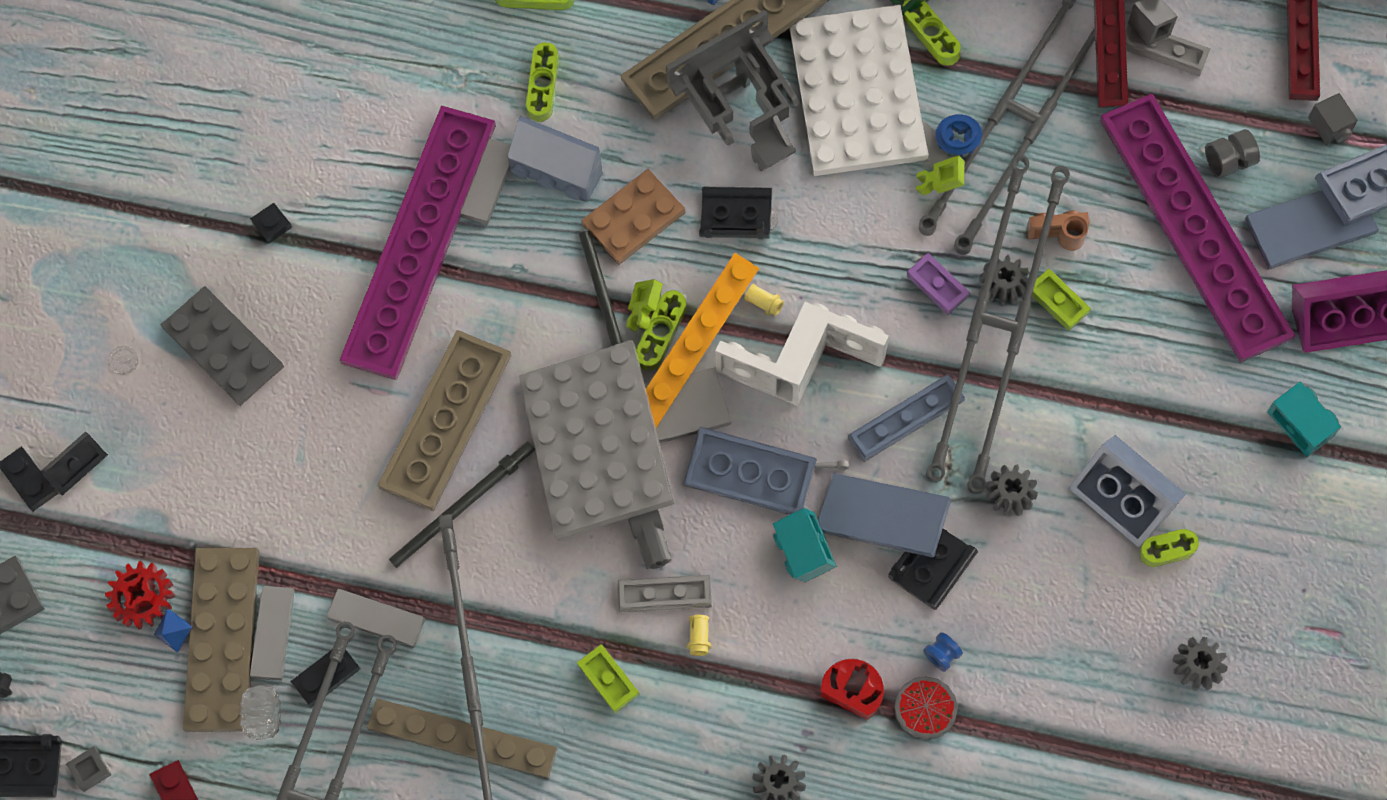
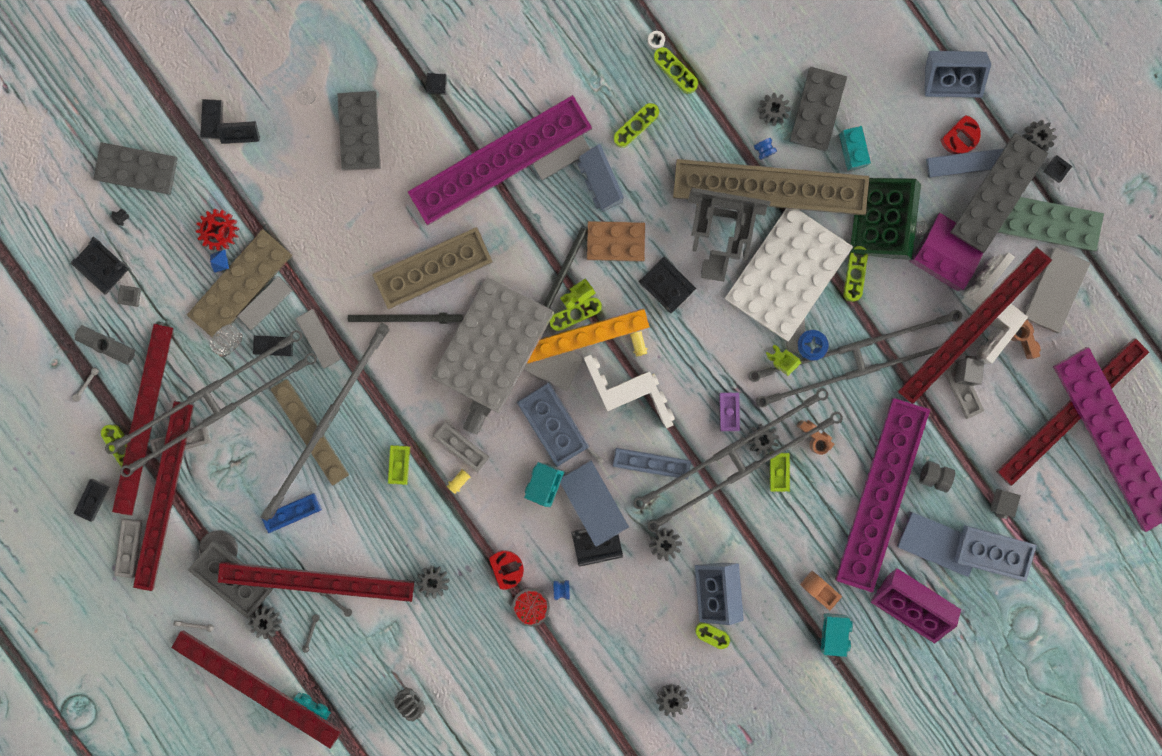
camera: 35 degrees right, 20 degrees up
(1230, 385) = (820, 590): none -> nougat plate

